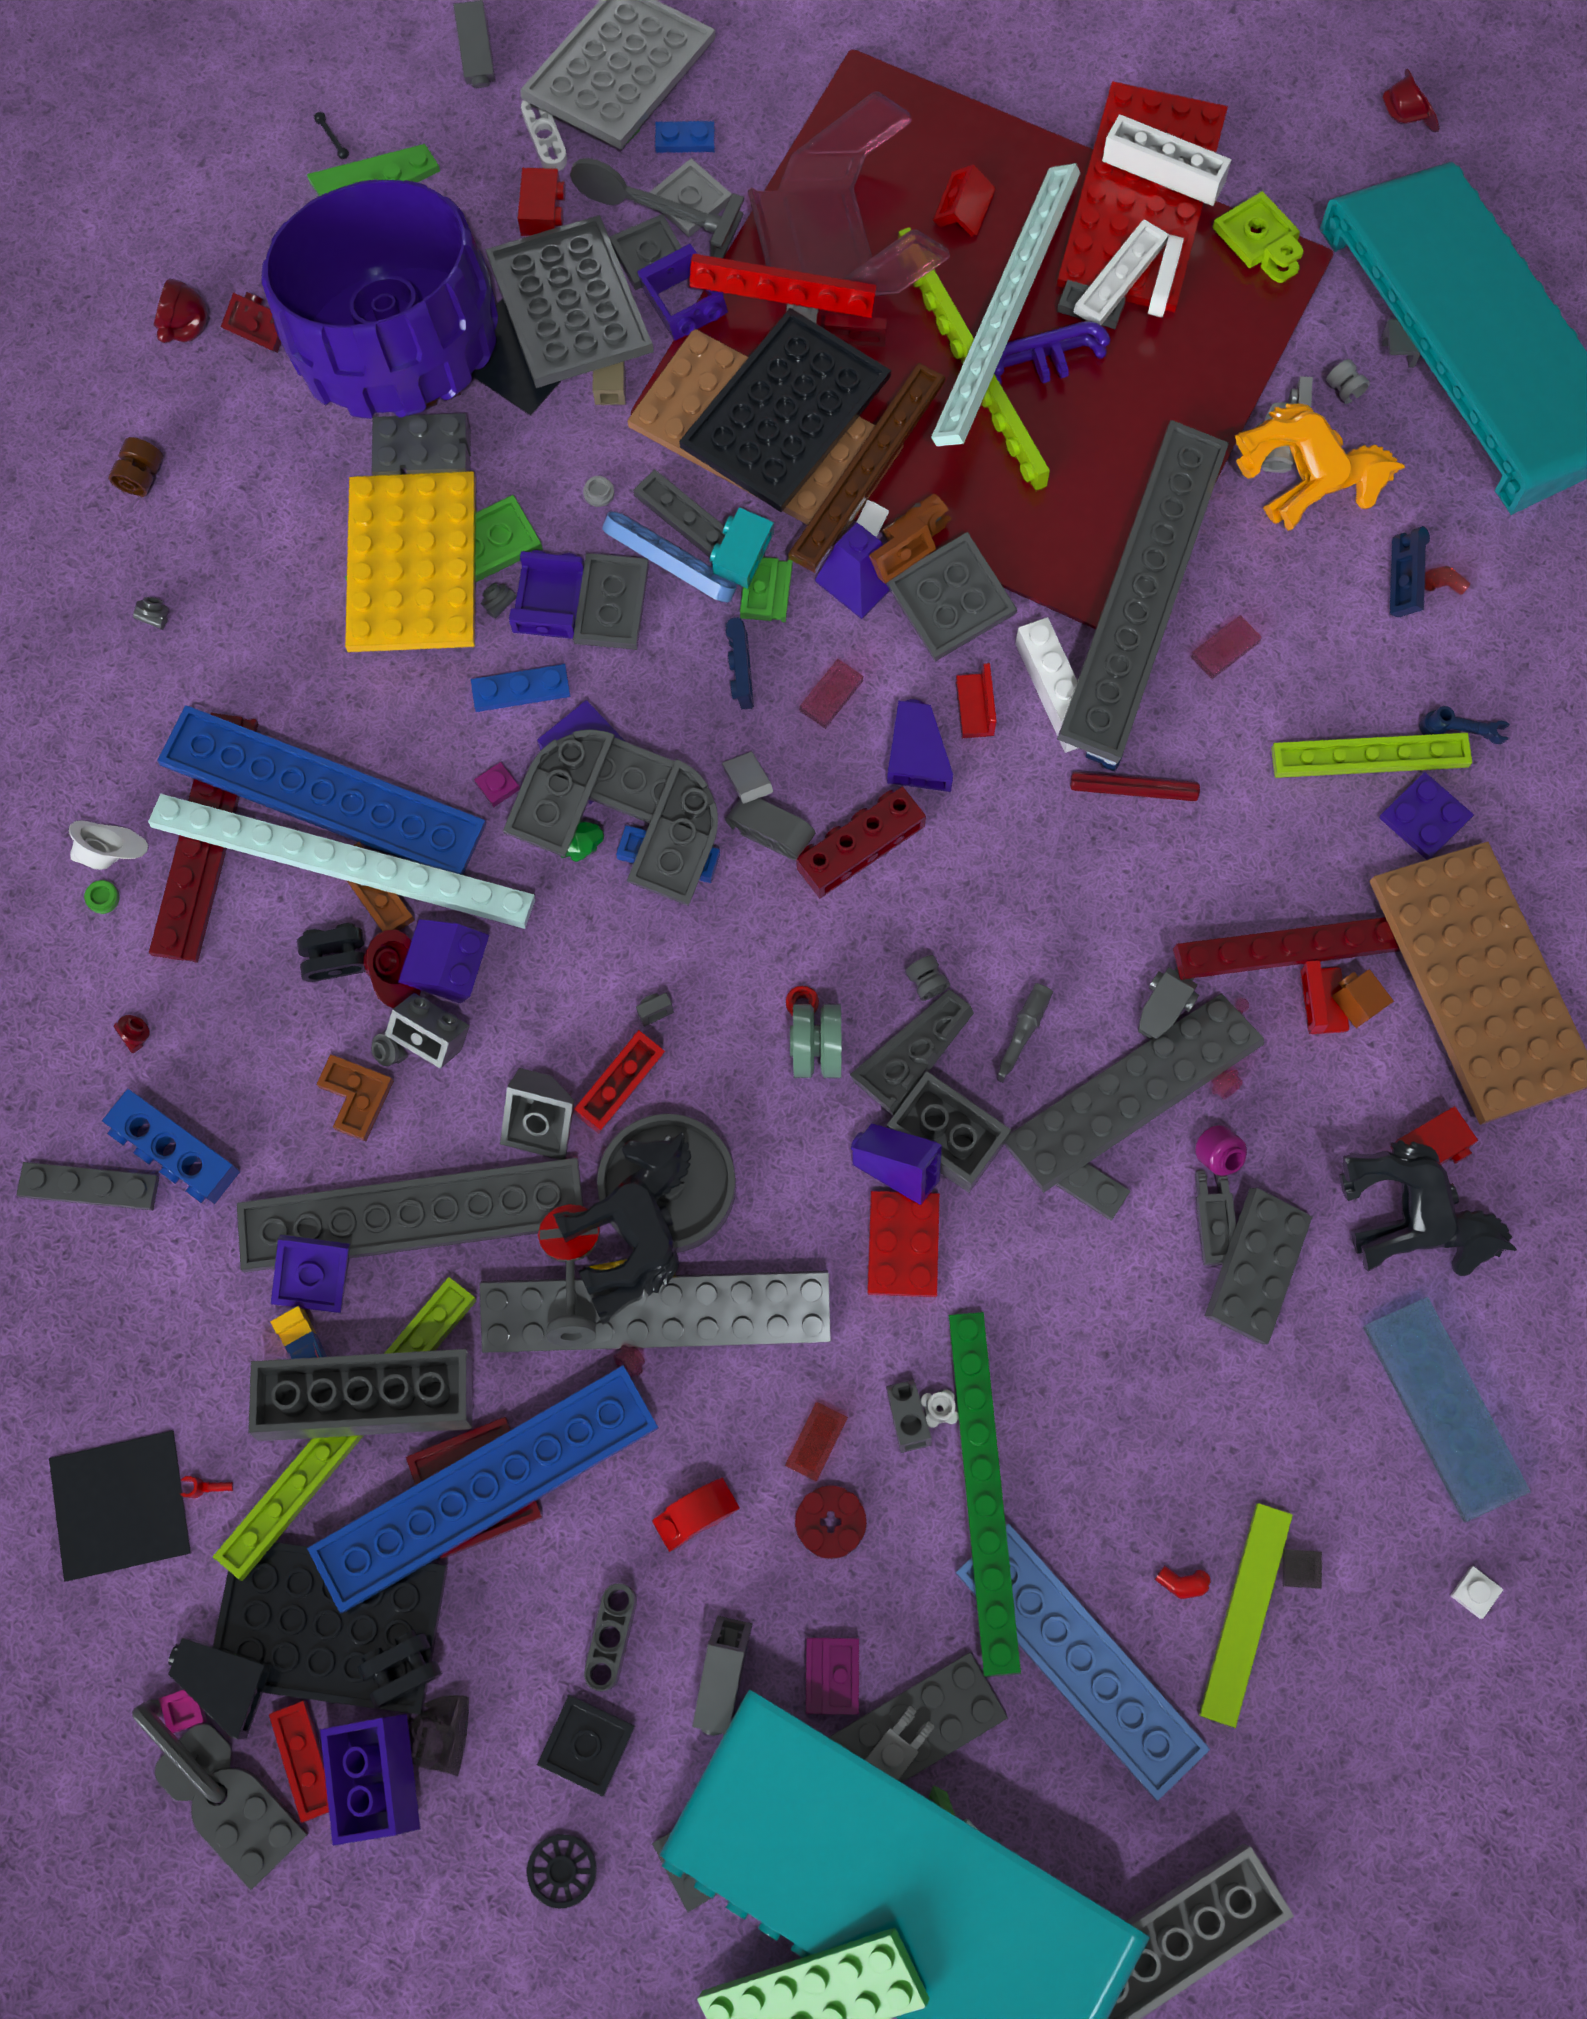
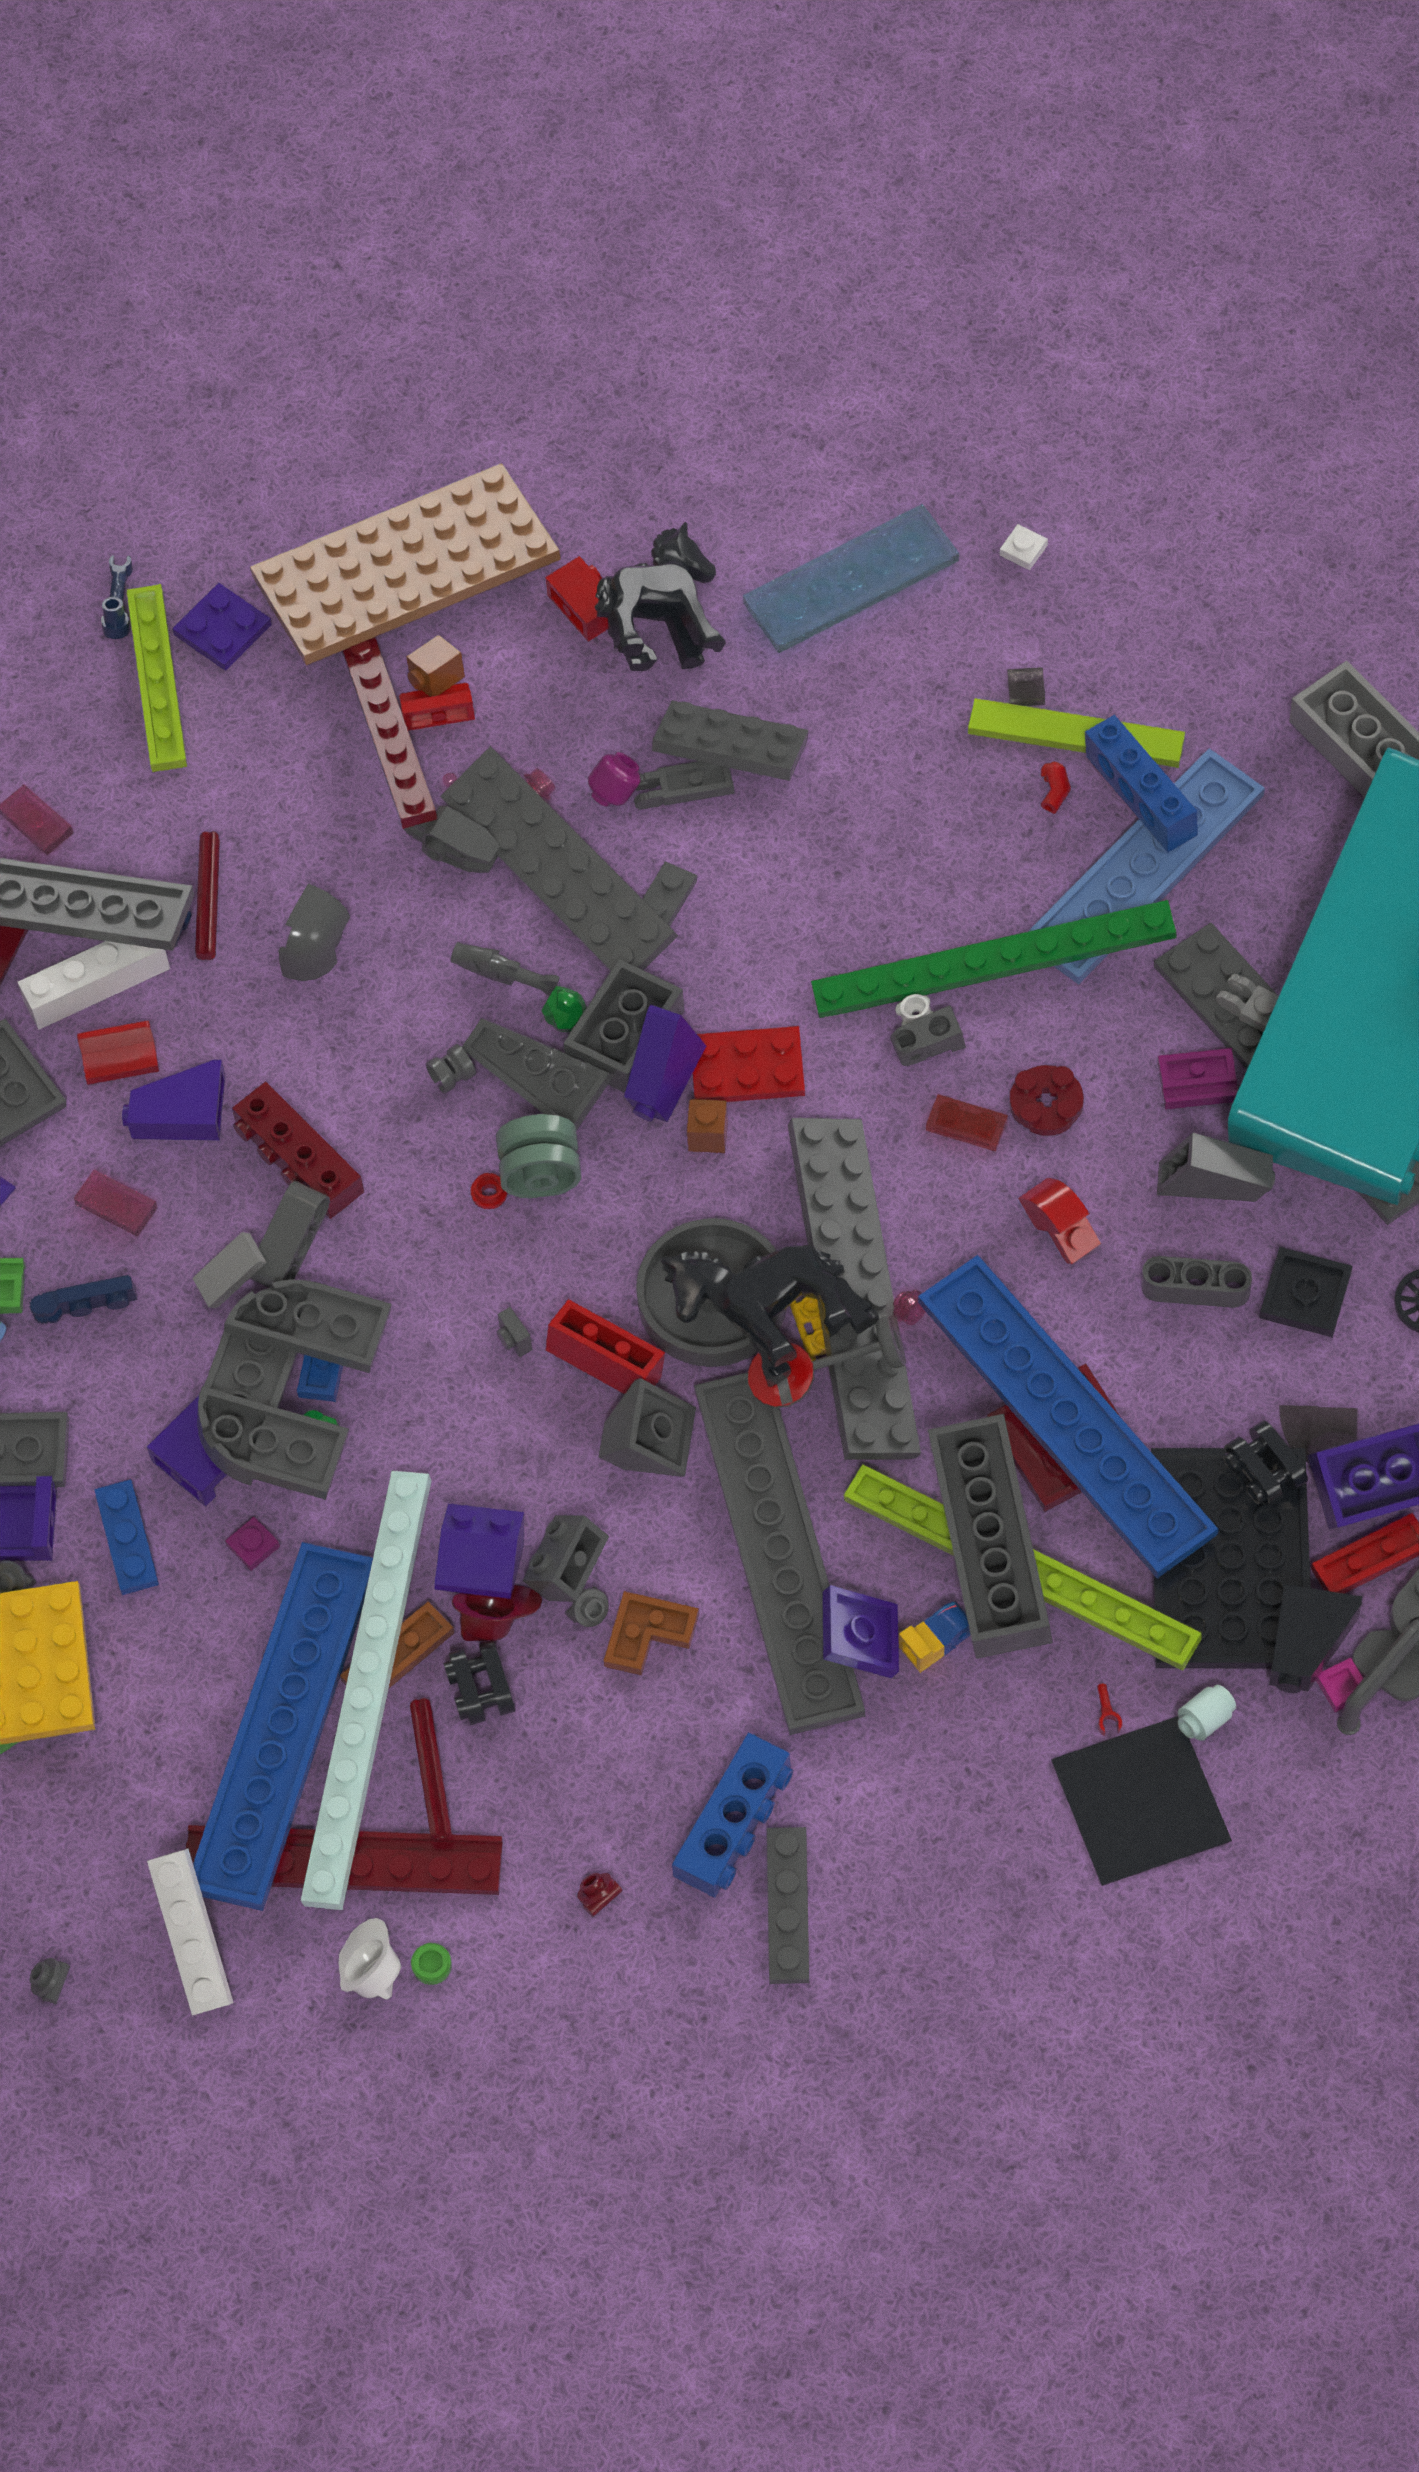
camera: 95 degrees left, 10 degrees down
(153, 708) = (190, 1932): none -> white plate
(178, 1575) = (1206, 1712): none -> light aqua brick
(263, 907) = (430, 1770): none -> dark red axle
(836, 1197) = (707, 1126): none -> dark orange brick
(975, 1082) = (563, 1008): none -> green rock
(1073, 864) = (314, 934): none -> dark grey brick
(1164, 1667) = (1141, 783): none -> blue brick

